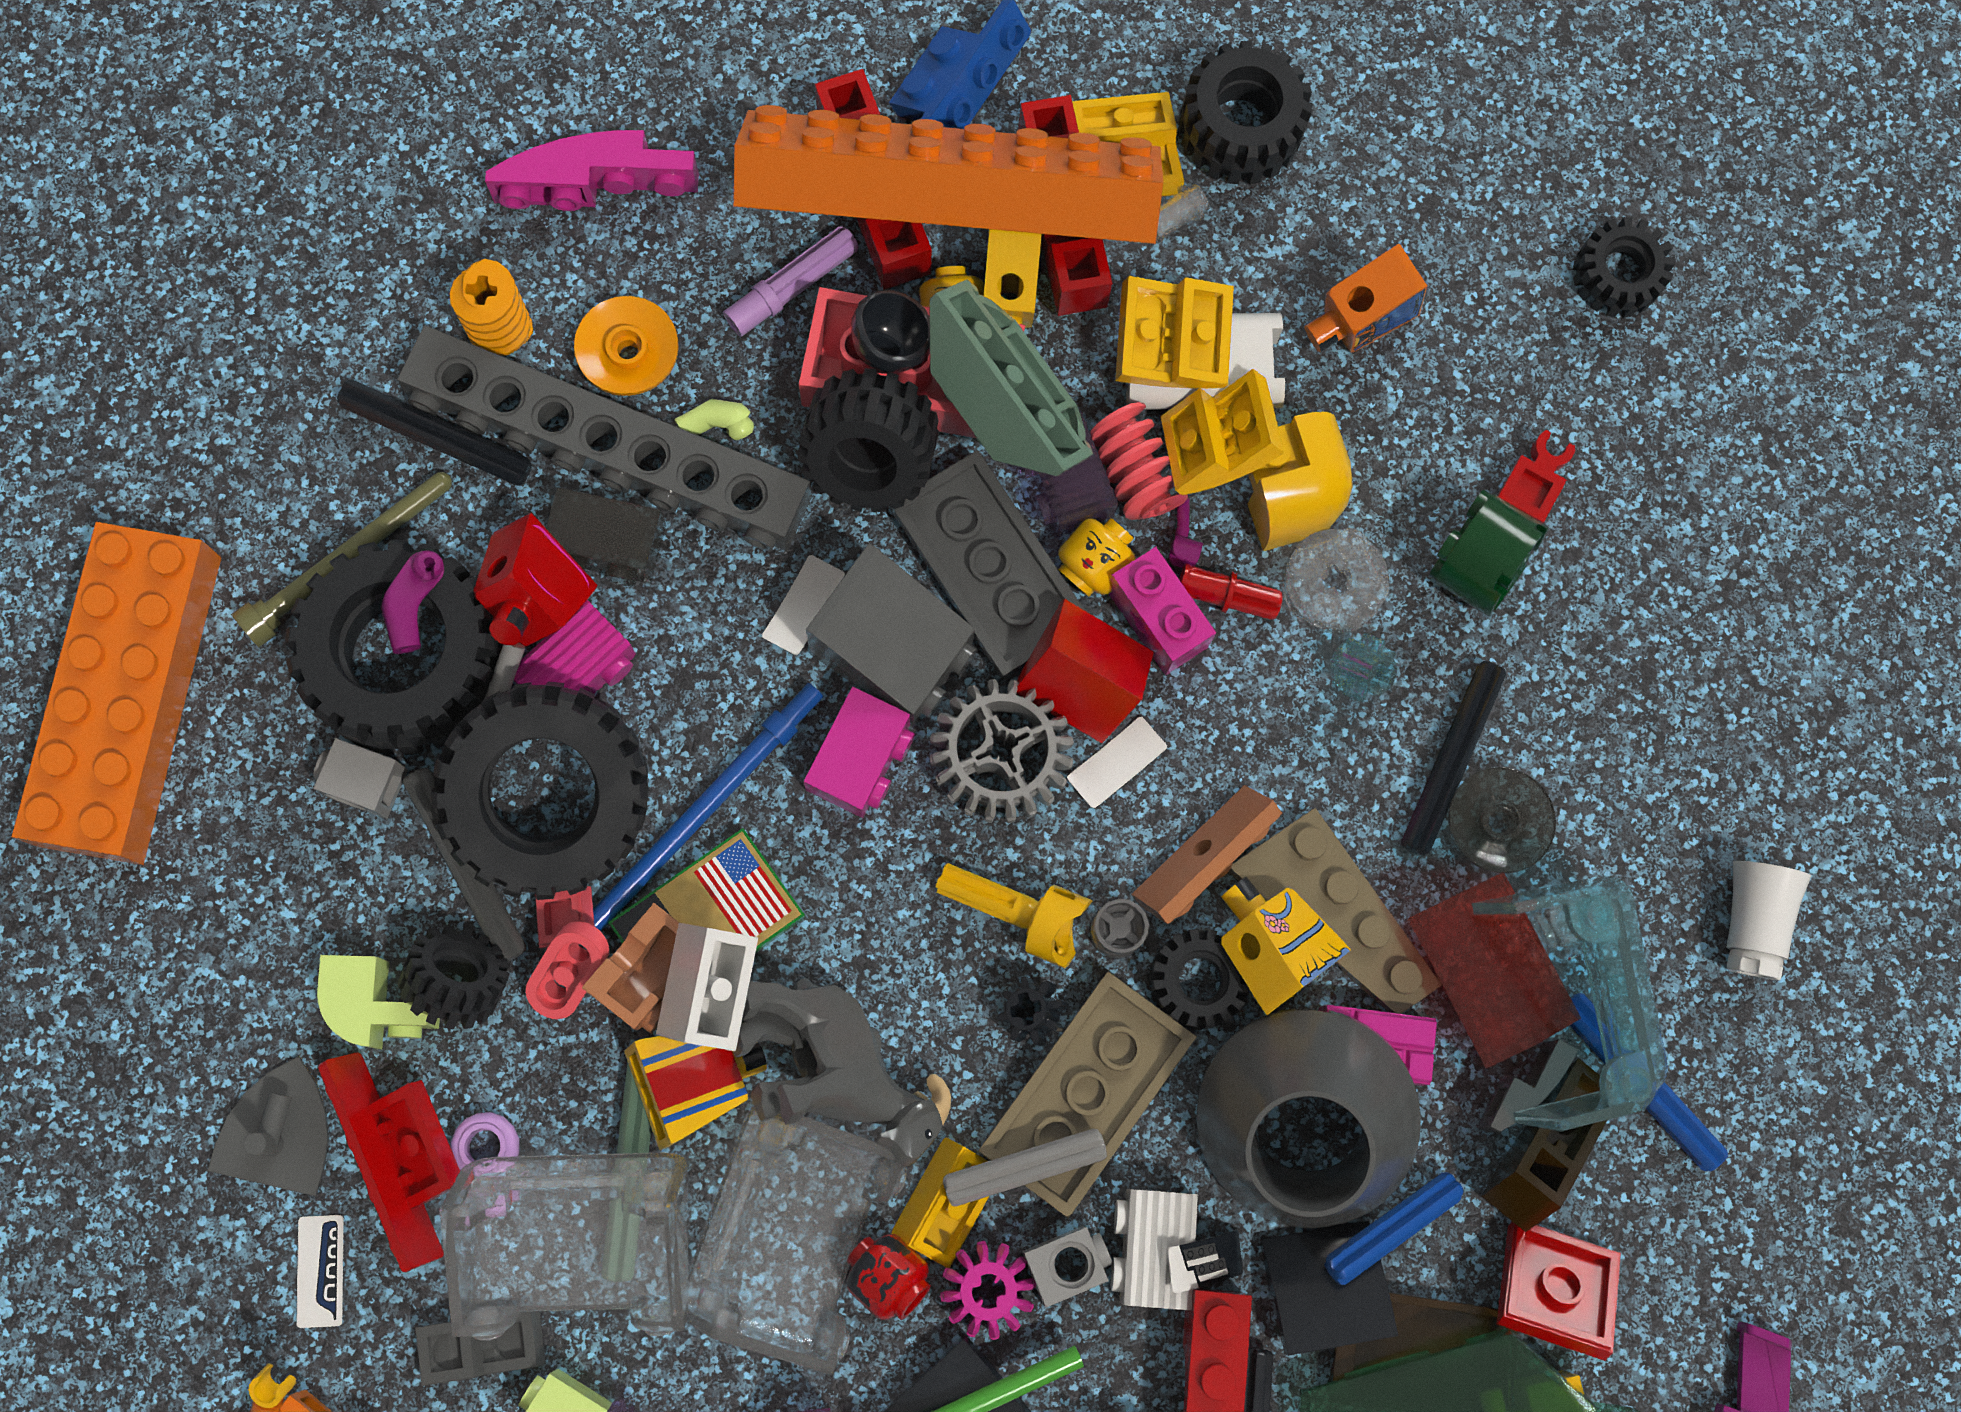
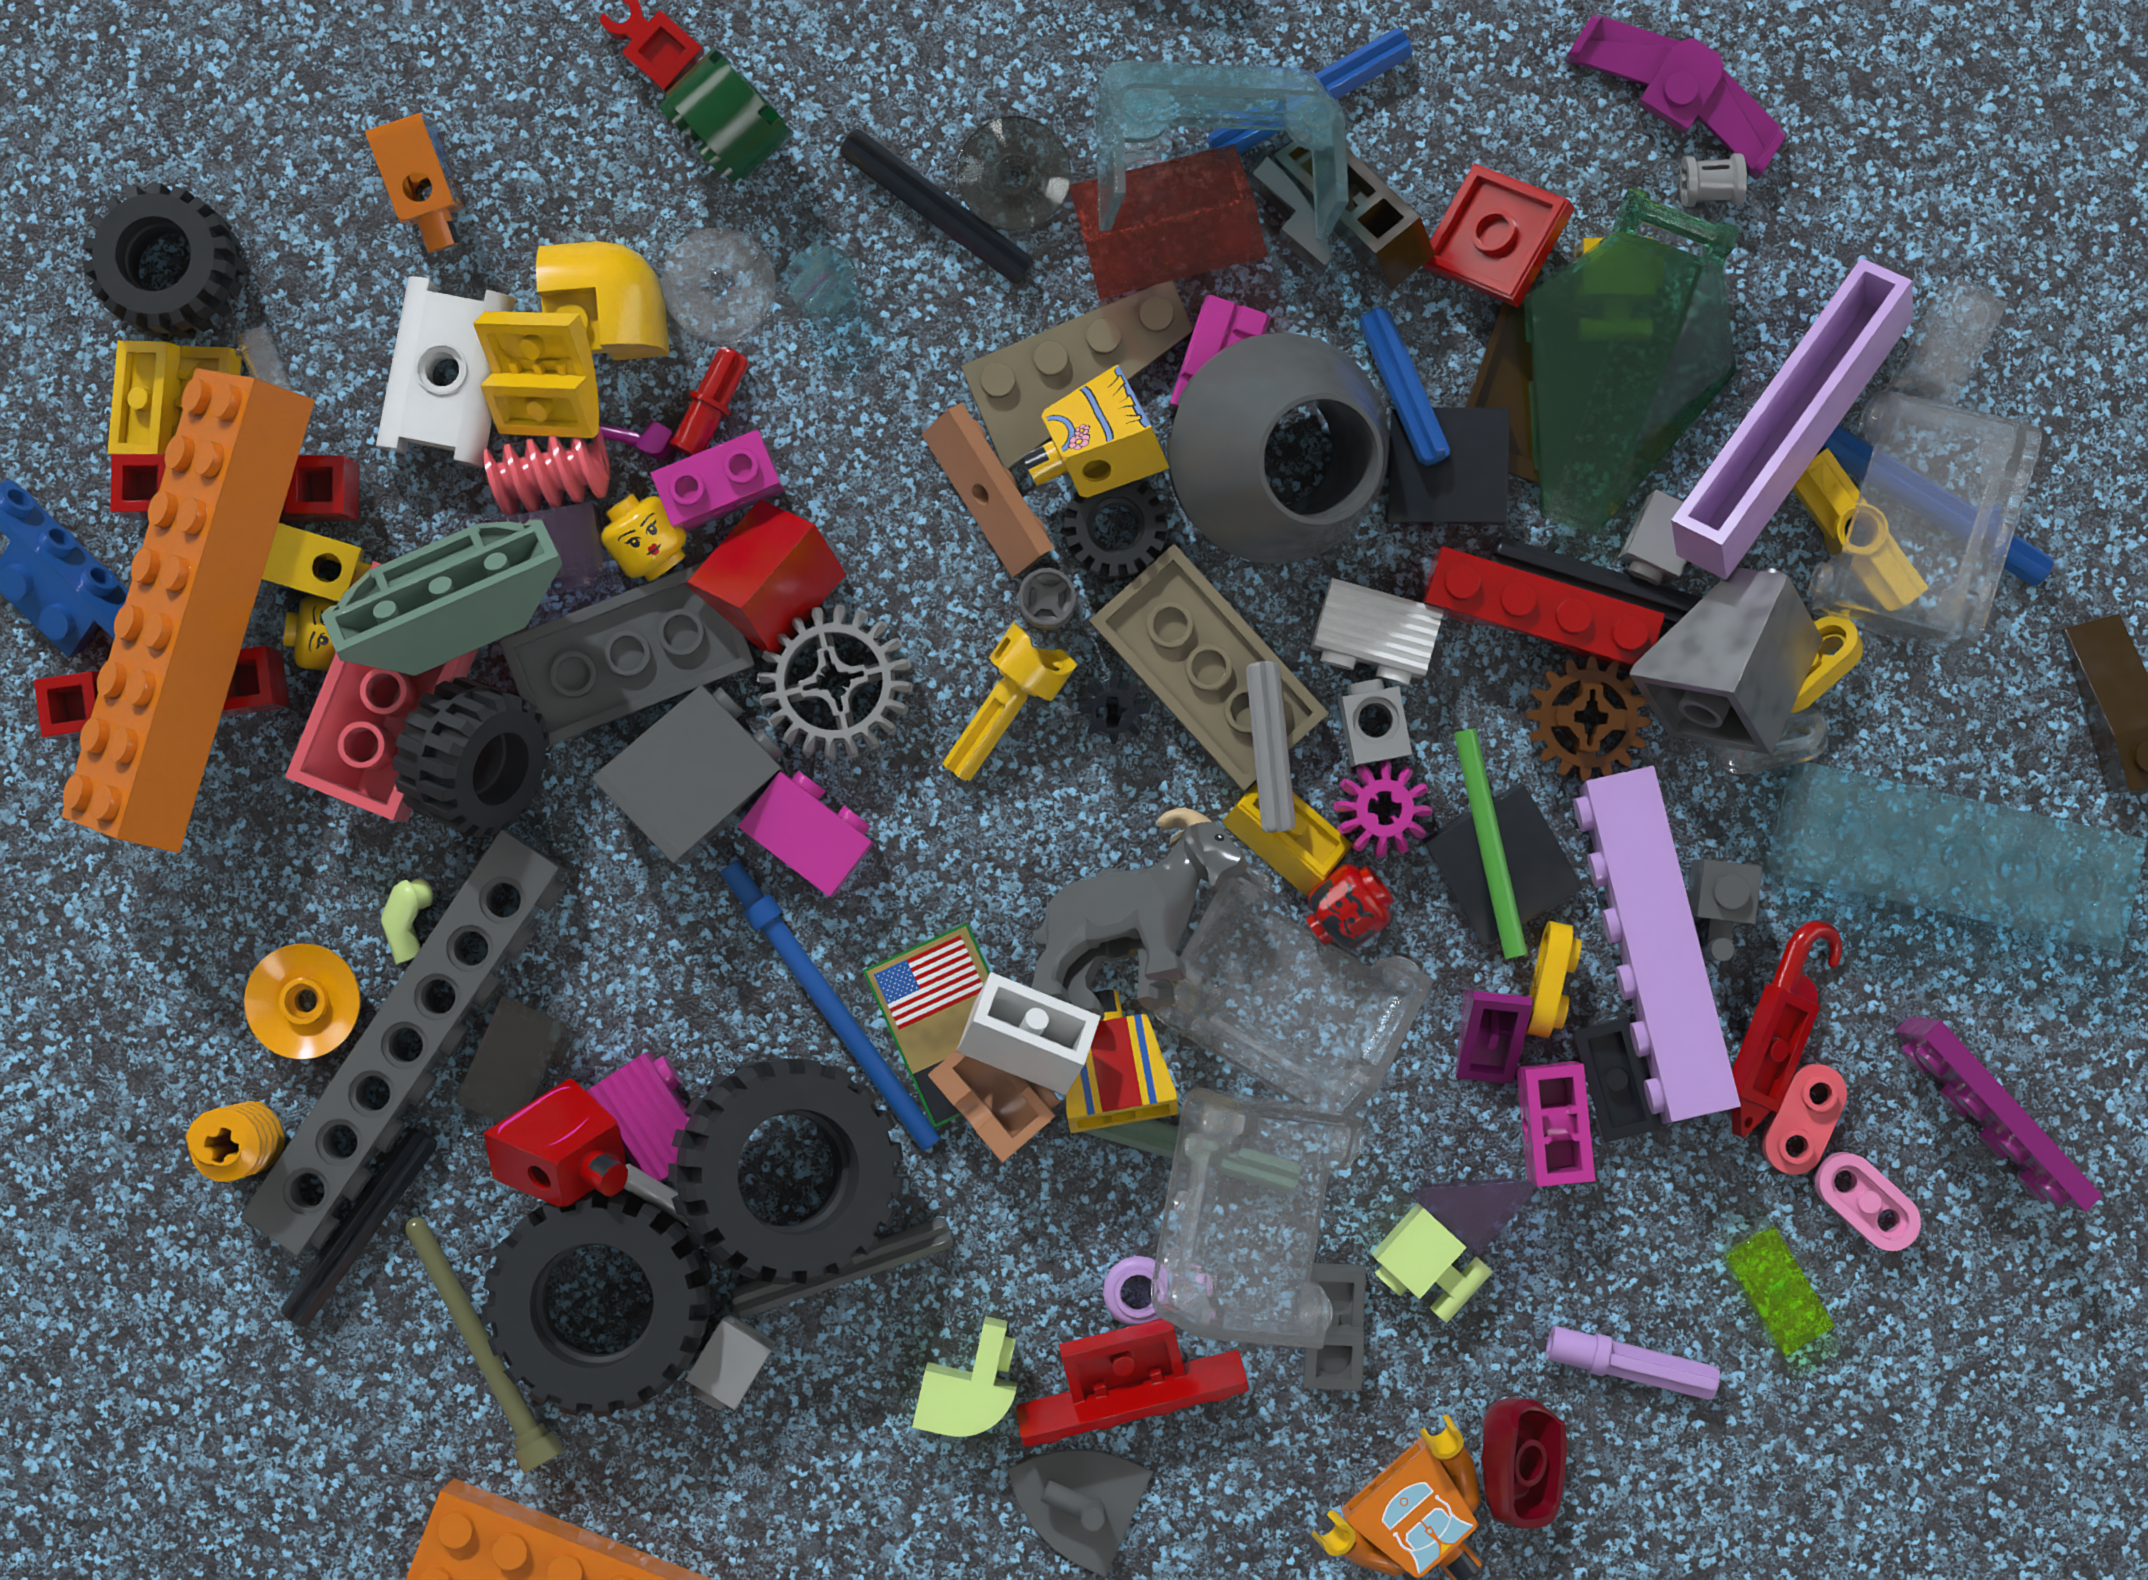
camera: 70 degrees left, 10 degrees up
(320, 1271) = (1228, 1477): white sticker -> none
(404, 596) = (554, 1279): magenta arm -> none
(449, 998) = (979, 1309): black tyre -> none
(563, 909) = (924, 1171): coral tile -> none
(569, 967) = (975, 1173): coral plate -> none
(574, 167) = (81, 1028): dark pink slope -> none
(772, 294) = (272, 831): lavender axle -> none
(802, 603) = (632, 861): white sticker -> none
(891, 332) = (358, 708): black piece -> none
(1117, 762) = (869, 563): white sticker -> none
(1174, 333) = (413, 399): yellow slope -> none
(1205, 1262) = (1399, 584): sticker -> none

